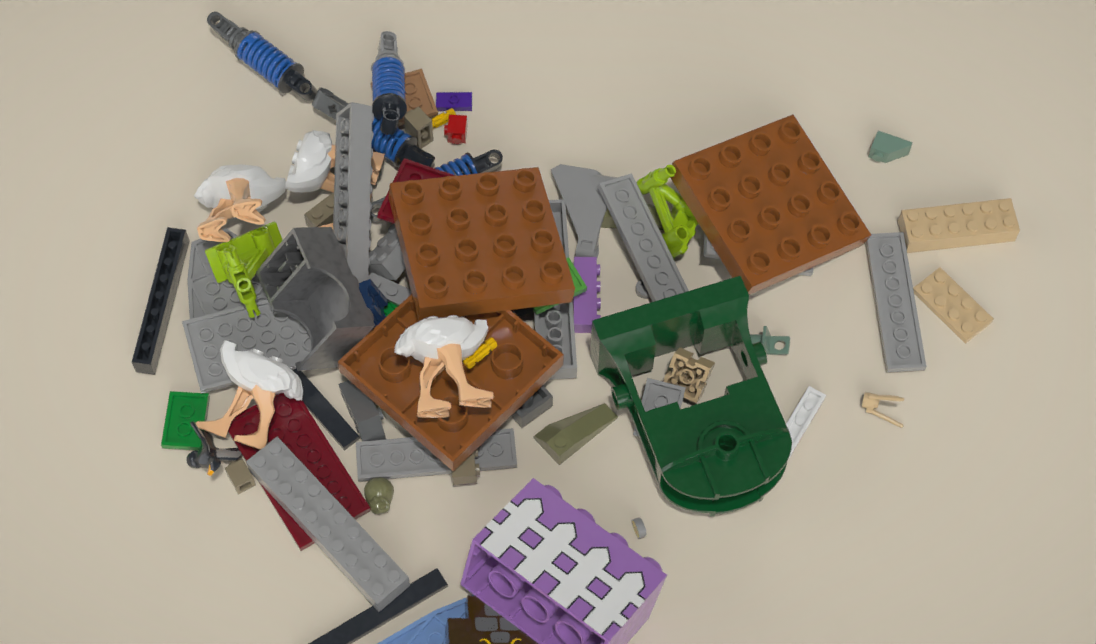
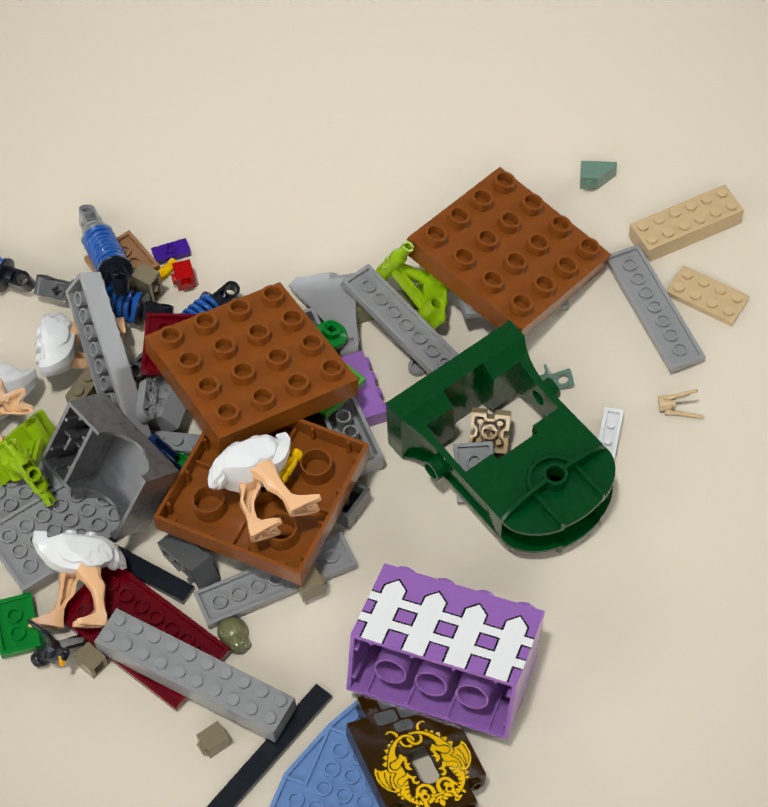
camera: 15 degrees left, 5 degrees down
(323, 590) = (213, 740): none -> dark tan brick
(369, 254) = (146, 400): none -> light grey beam
(572, 238) = (339, 333): none -> green piece
(572, 433) = (396, 522): olive wedge -> none
(639, 527) = (495, 584): light grey tile -> none

